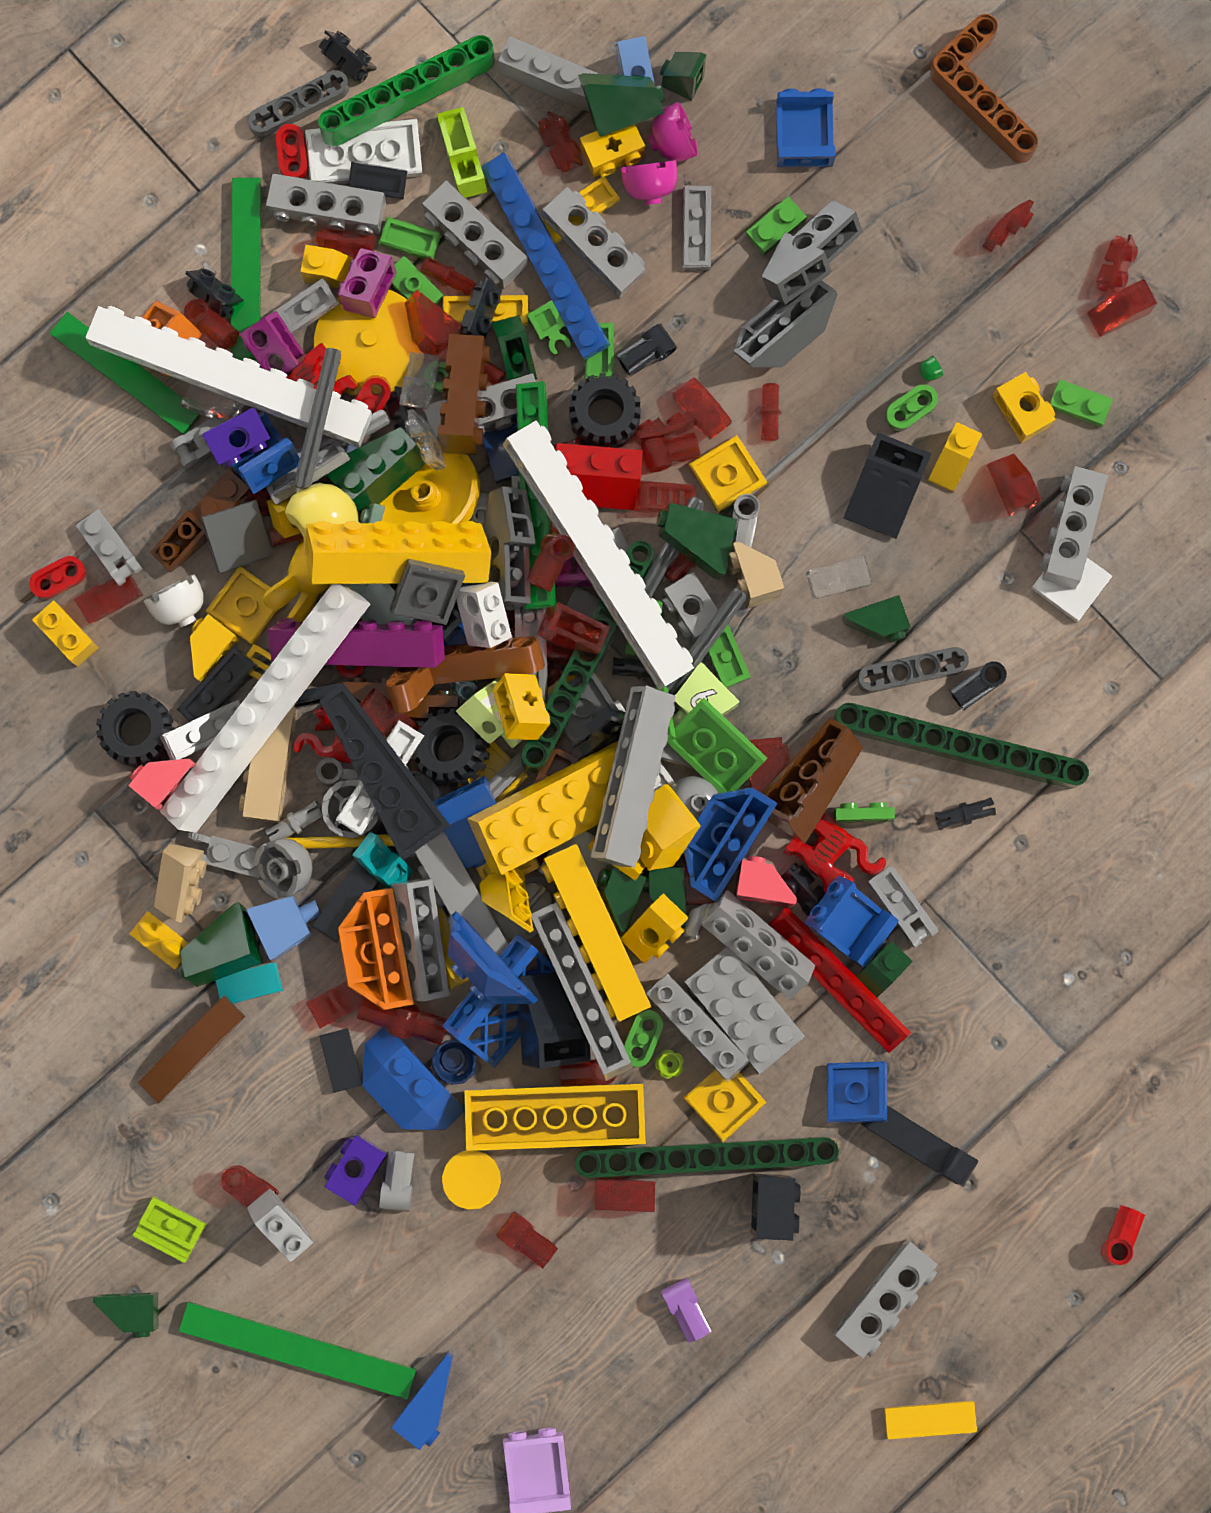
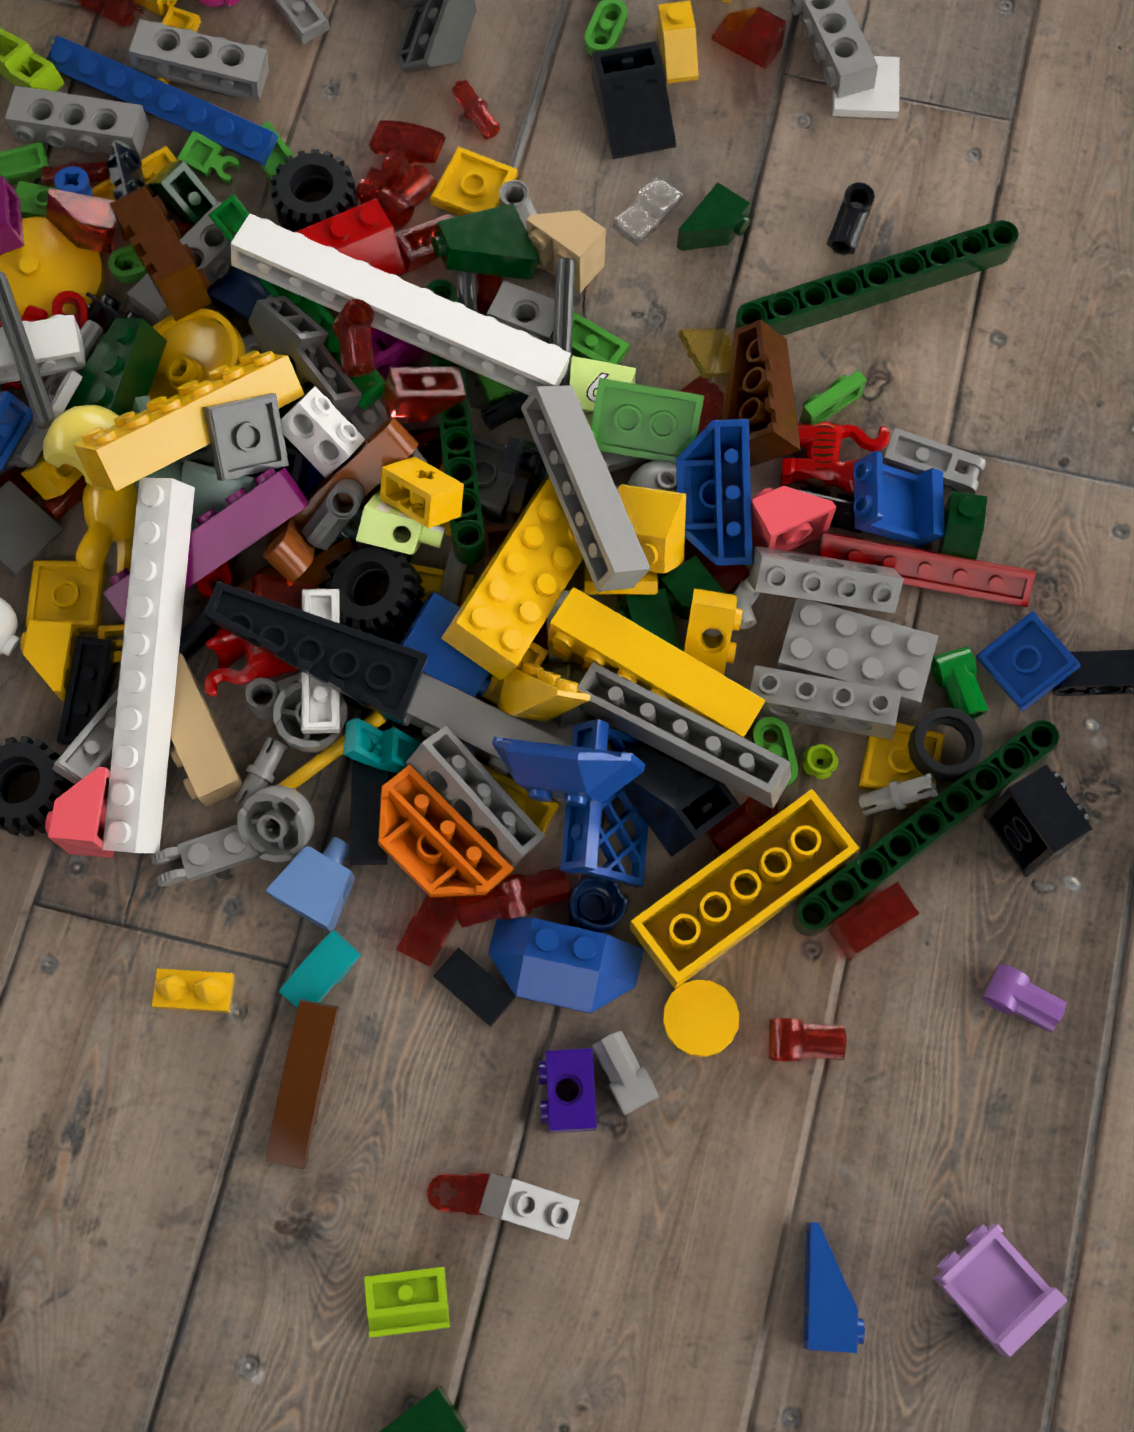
camera: 30 degrees left, 10 degrees down
(179, 881) = (171, 909): tan slope -> none
(221, 948) = (264, 953): dark green slope -> none
(297, 1350) = (640, 1339): green tile -> none
(420, 381) = (107, 272): clear slope -> none
(422, 433) = (139, 308): clear slope -> none
(440, 299) = (73, 180): none -> blue wheel
(454, 679) = (333, 515): none -> dark grey piece
(653, 346) = (321, 117): black piece -> none
(701, 1123) = (897, 795): none -> light grey pin
(779, 1115) = (959, 721): none -> black tyre
(802, 719) = (709, 350): none -> clear yellow piece
(803, 1068) = (957, 675): none -> green piece
(911, 665) = (778, 247): dark grey beam -> none
(965, 813) = (926, 341): black pin -> none

